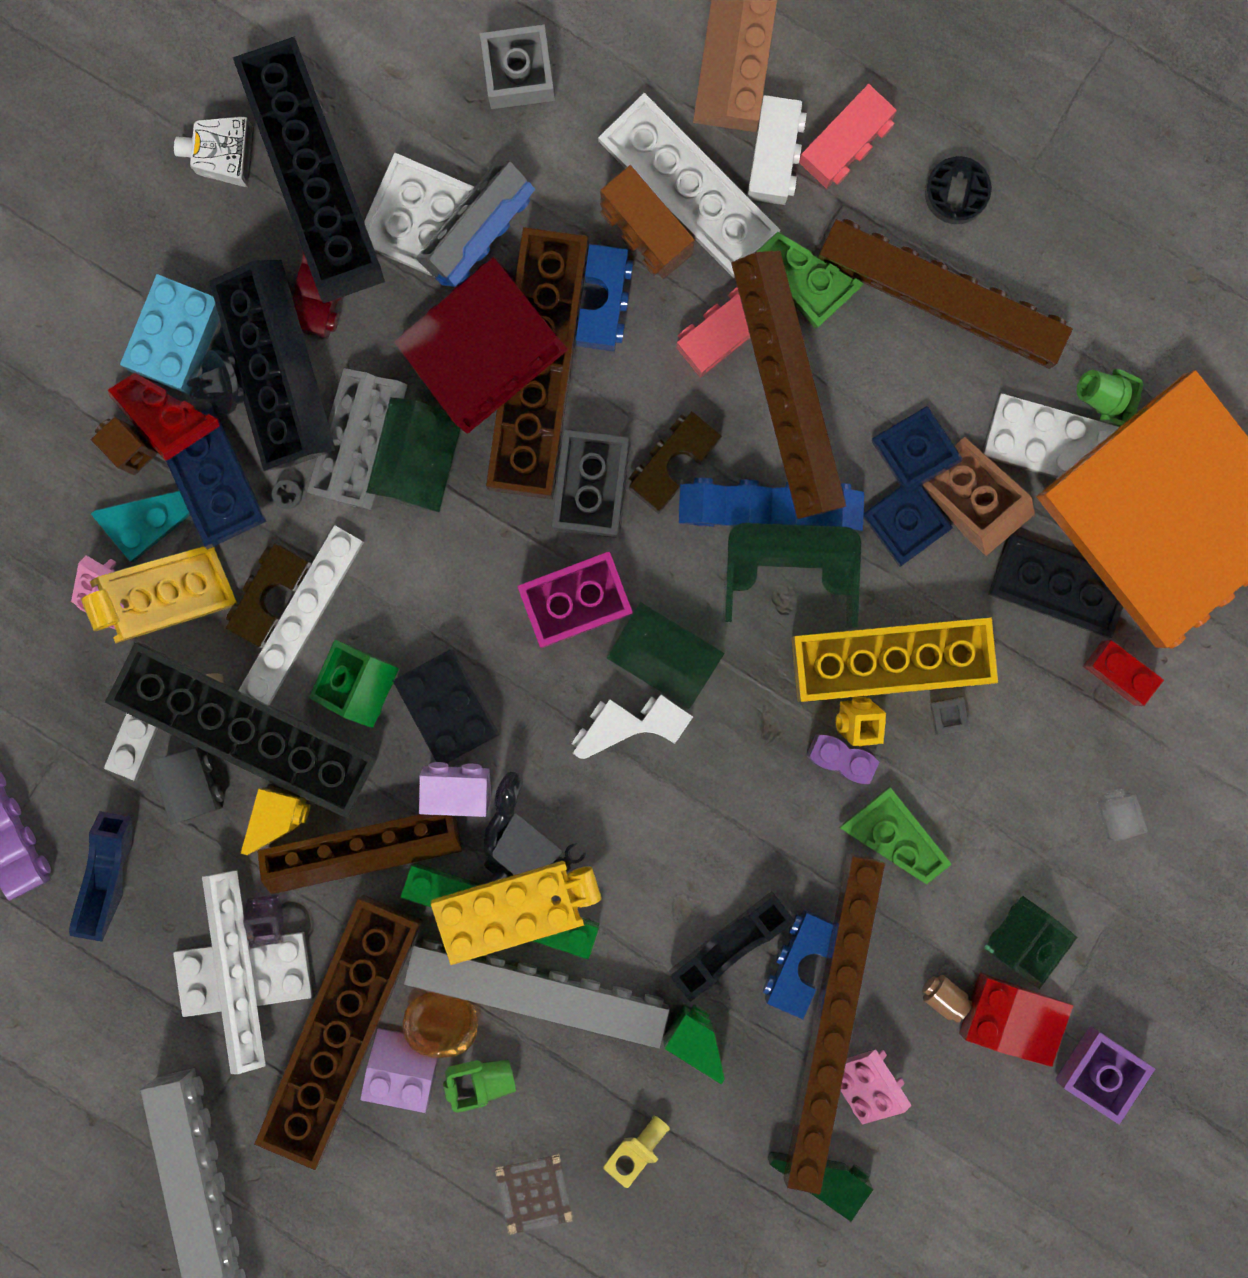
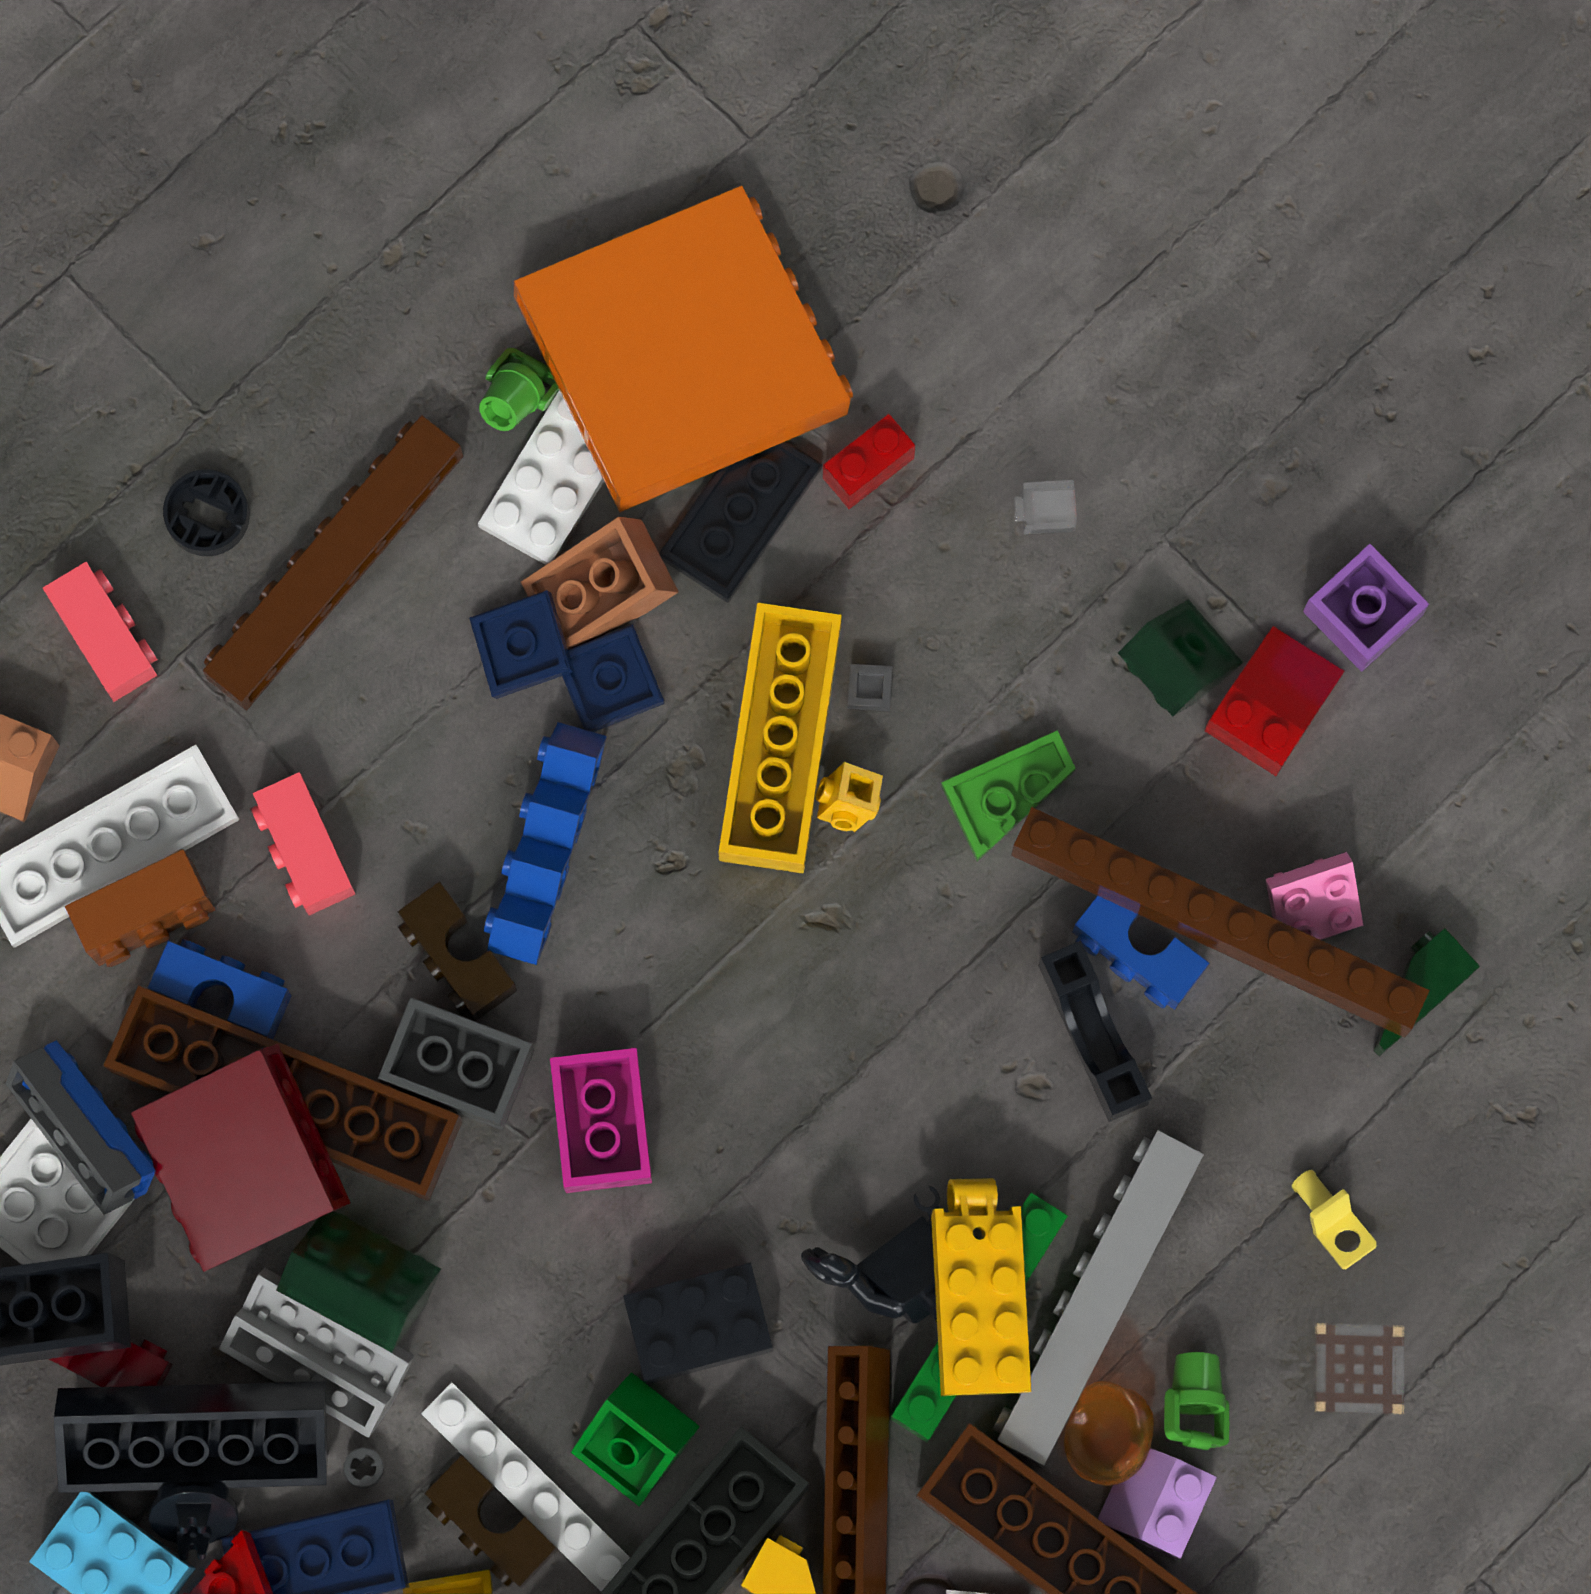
camera: 80 degrees left, 10 degrees down
(454, 790) = (806, 1332): lavender slope -> none
(616, 724) = (773, 1109): white arch -> none
(665, 655) = (701, 1024): clear green slope -> none
(694, 1041) = (1204, 1104): green slope -> none
(776, 150) = (93, 724): white brick -> none
(788, 383) = (397, 778): reddish brown brick -> none
(799, 546) = (617, 784): clear green windscreen -> none
(814, 285) = (271, 726): bright green wing -> none
(849, 762) = (898, 825): medium lavender brick -> none
(946, 998) = (1226, 779): medium nougat brick -> none

